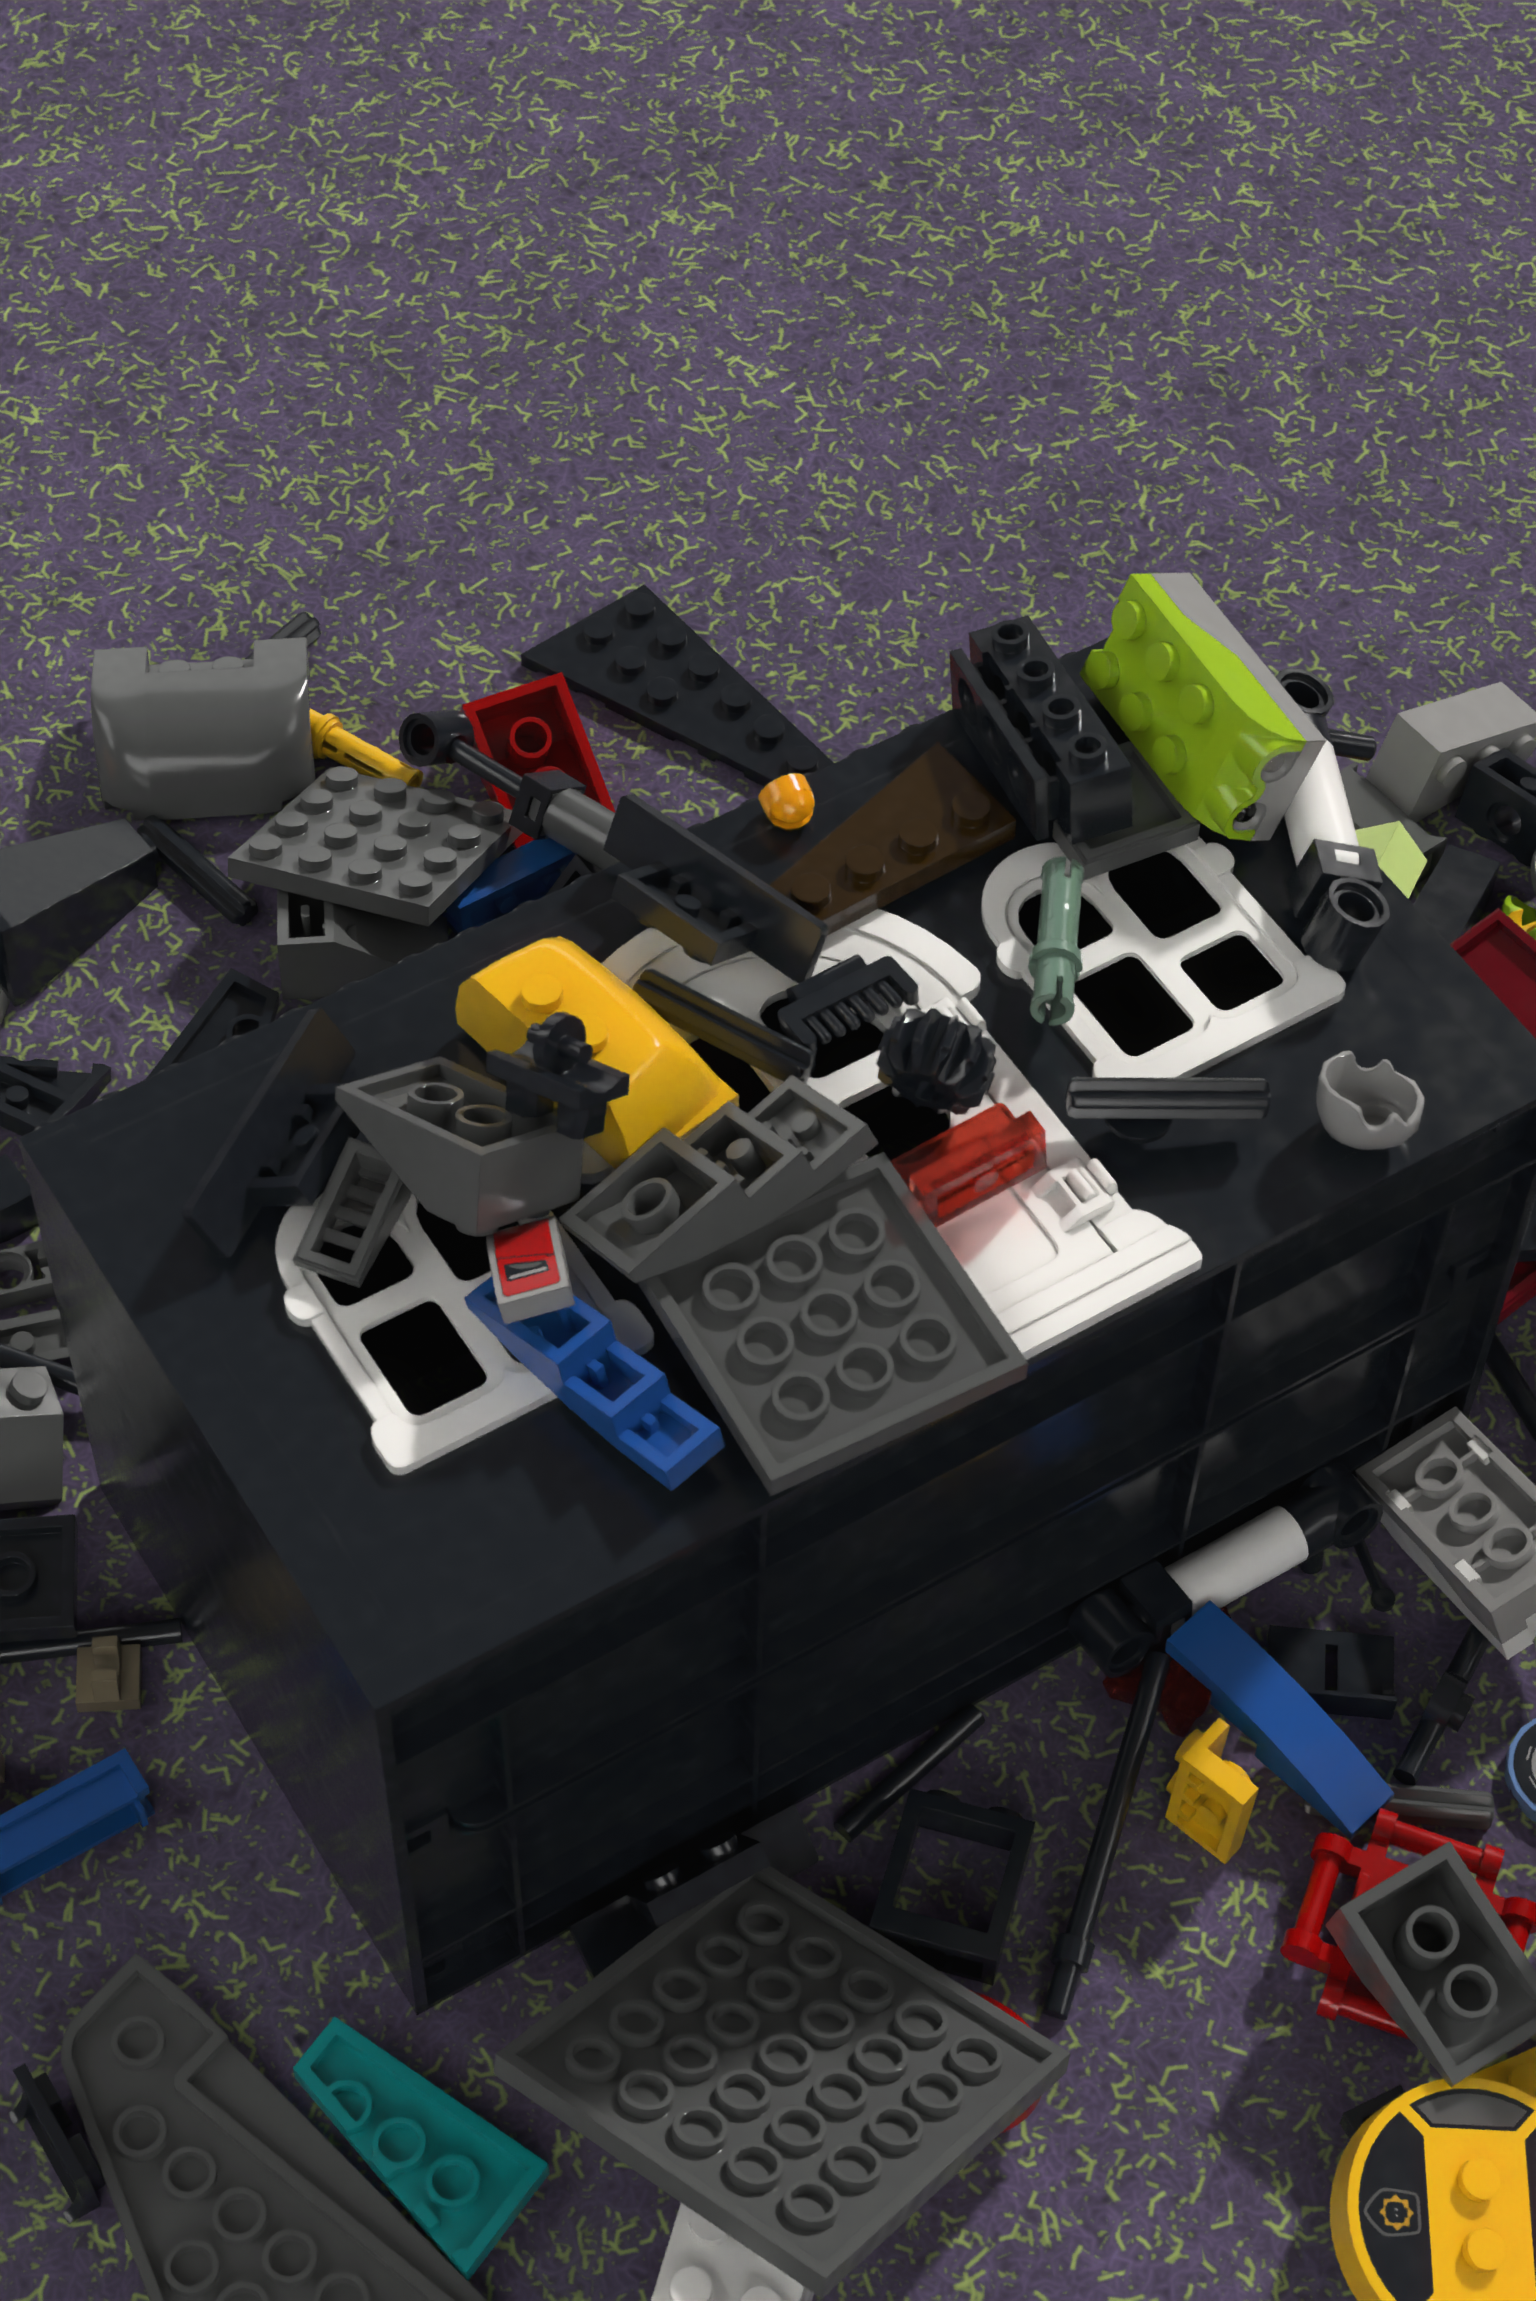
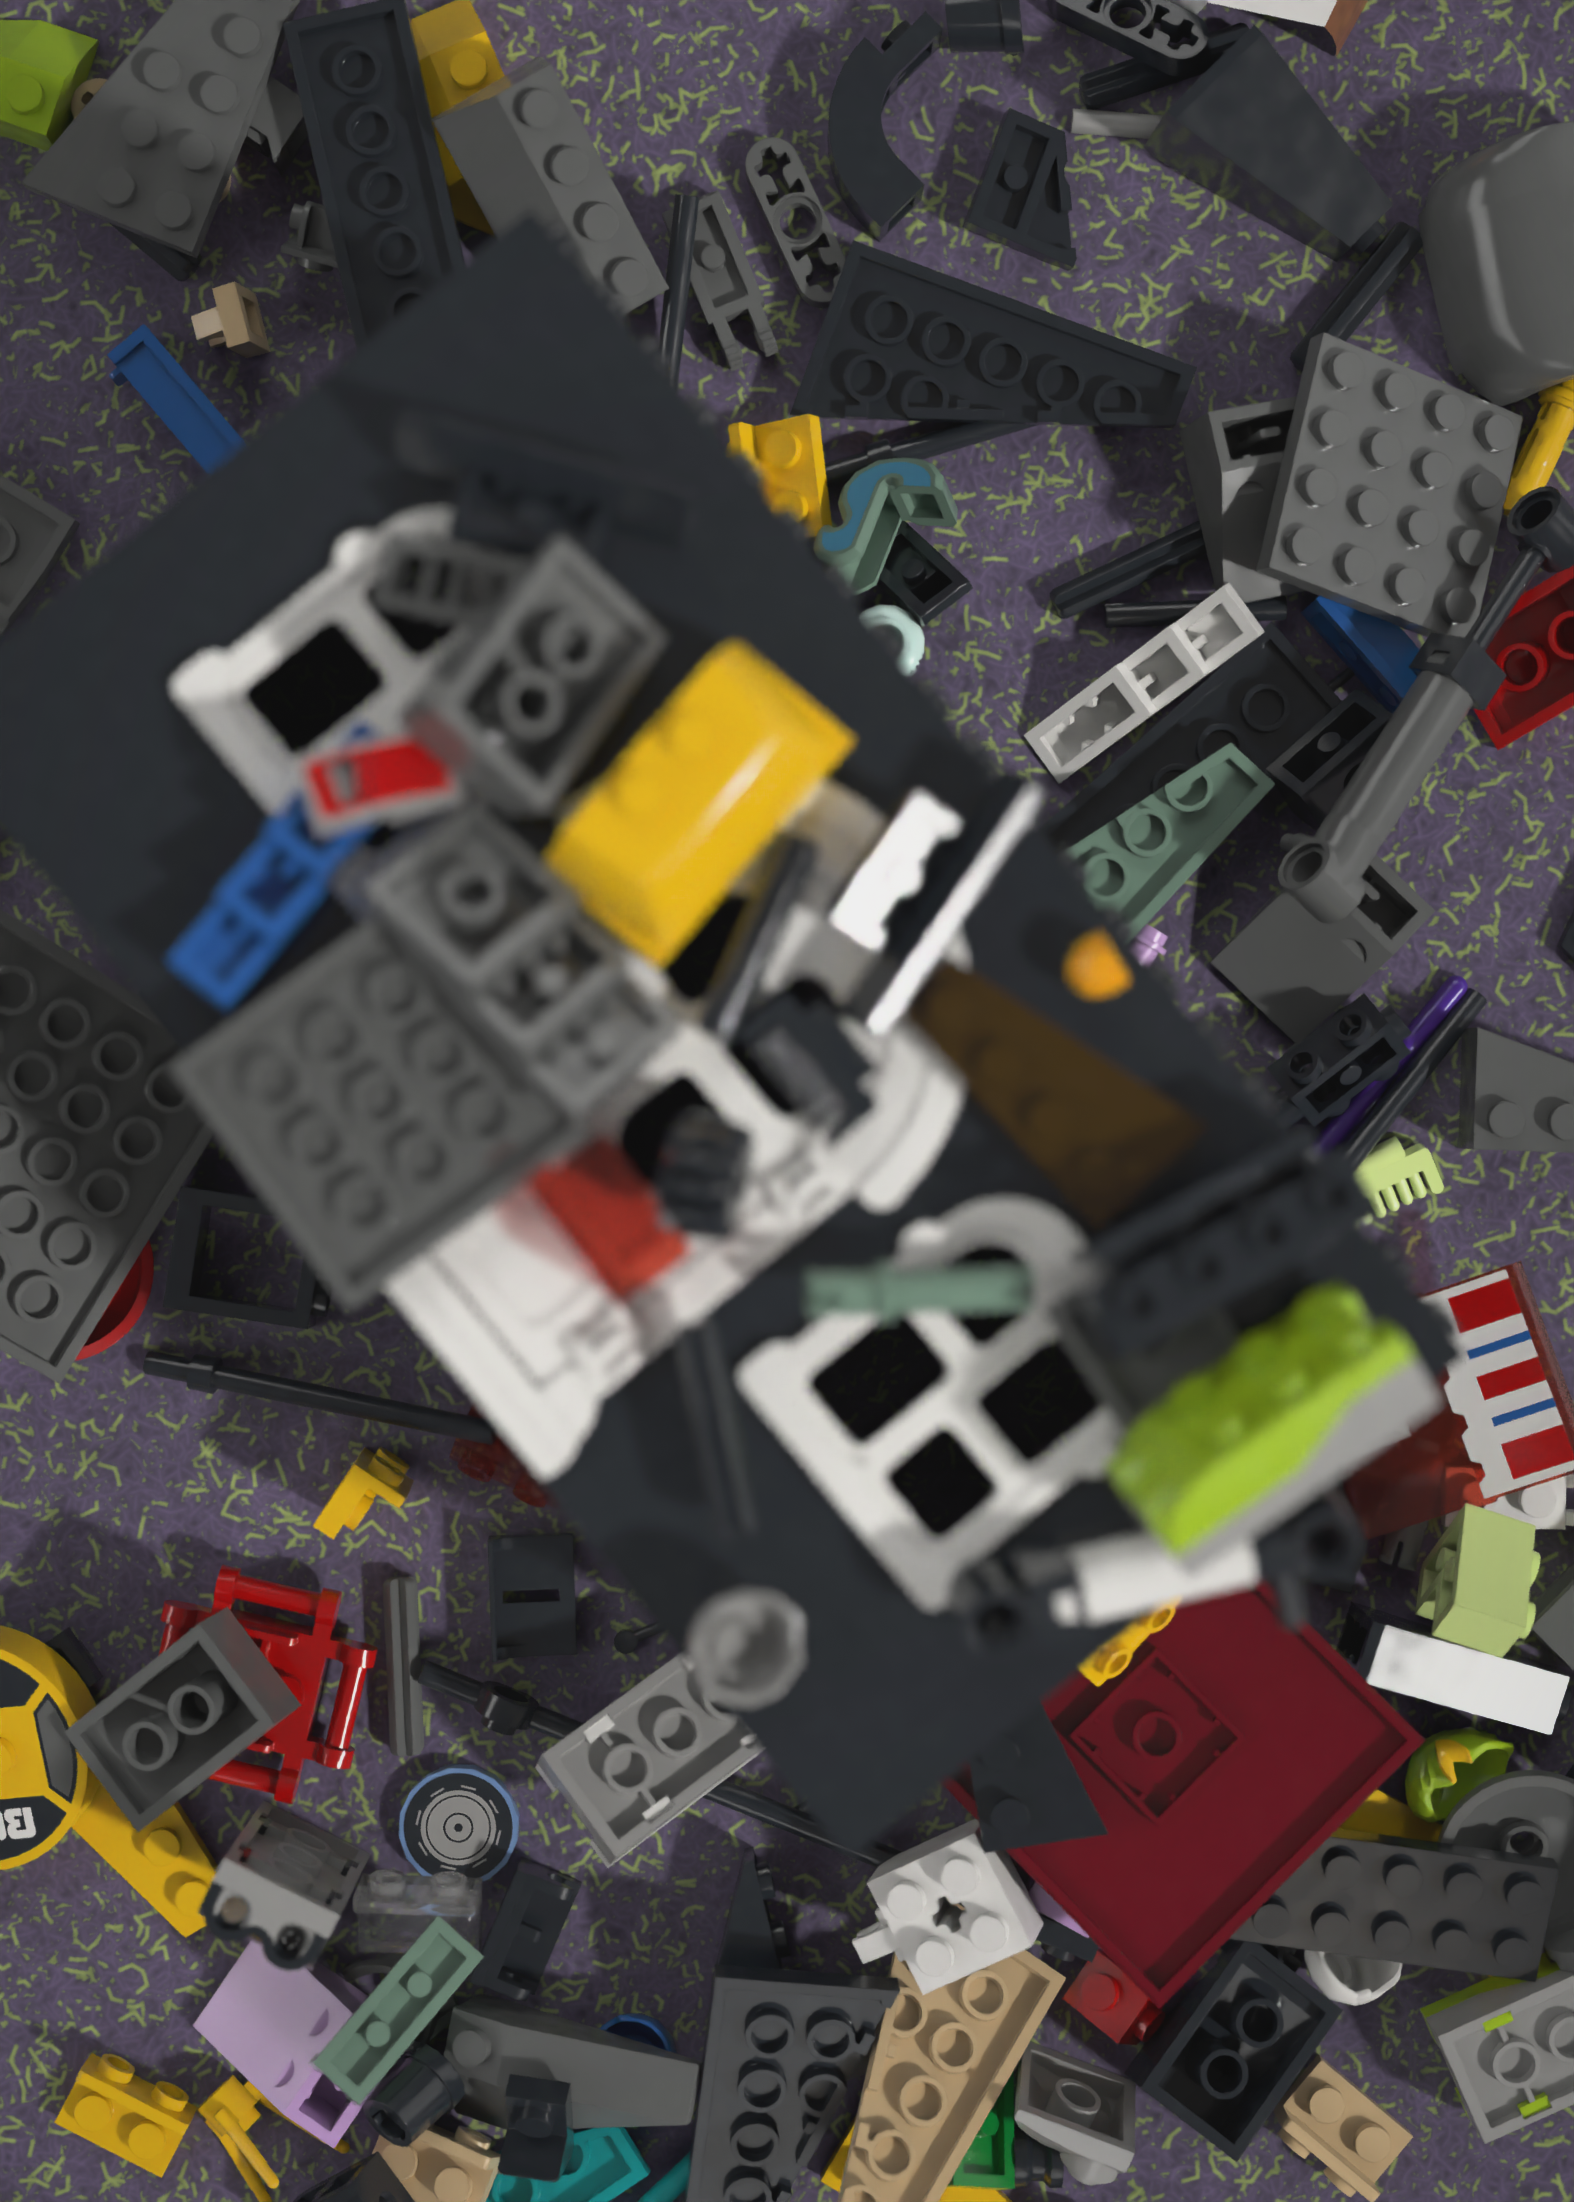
camera: 85 degrees right, 35 degrees up
(559, 1068) = (567, 775): black hips -> none
(1281, 1718) = (443, 1550): blue slope -> none

